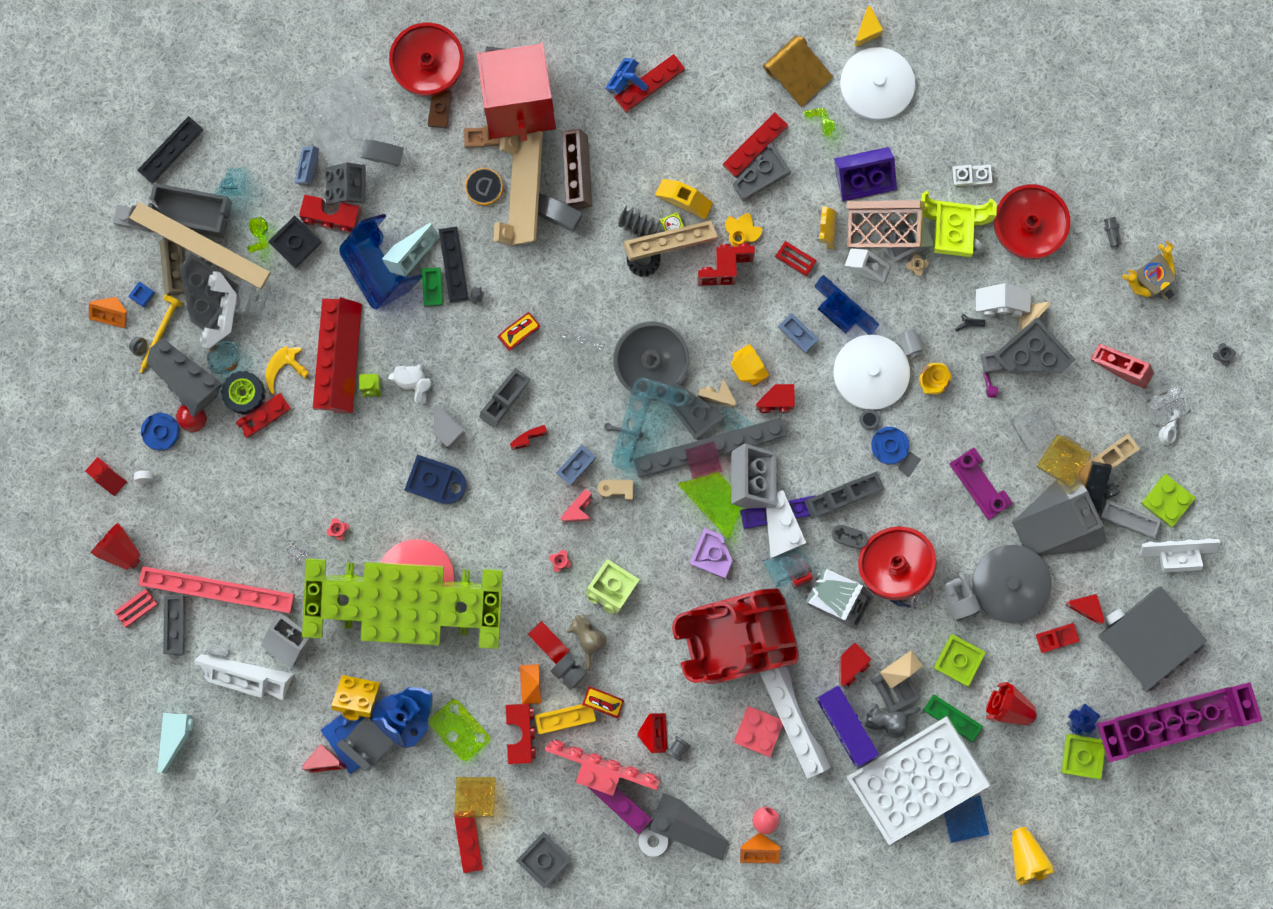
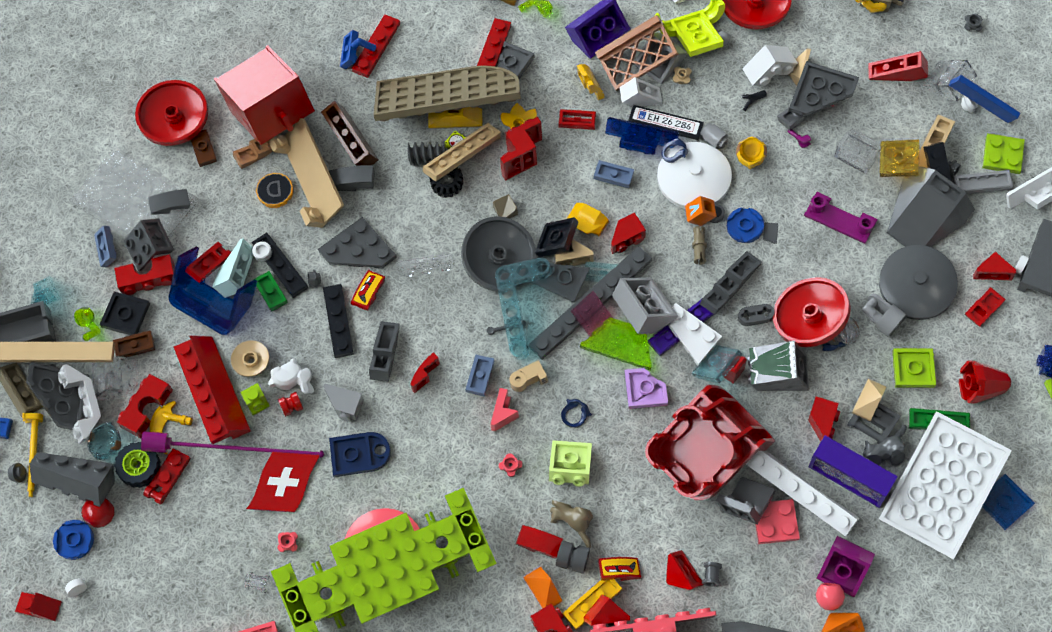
camera: 25 degrees left, 15 degrees down
(258, 347) = (150, 391): none -> red arch
(290, 276) = (134, 344): none -> reddish brown plate
(359, 470) = (281, 480): none -> red flag
(383, 334) = (246, 351): none -> tan dish
(389, 232) = (208, 262): none -> red plate
(396, 405) = (290, 404): none -> red wheel
(443, 244) = (262, 251): none -> white tile
(478, 346) = (338, 321): none -> black plate
(531, 284) = (357, 247): none -> dark grey plate
(569, 735) = (605, 612): none -> red slope
(641, 533) = (570, 405): none -> dark blue piece
(681, 315) = (505, 207): none -> dark tan slope
(684, 172) = (444, 91): none -> dark tan plate
(711, 371) = (556, 237): none -> black plate
(744, 702) = (747, 500): none -> dark grey bracket
(794, 801) = (846, 565): none -> magenta slope
(836, 444) = (699, 245): none -> dark tan pin
(855, 413) = (700, 211): none -> orange brick
(868, 347) = (681, 153): none -> dark blue piece
(875, 305) = (686, 127): none -> tile
(1180, 441) = (984, 99): none -> blue tile

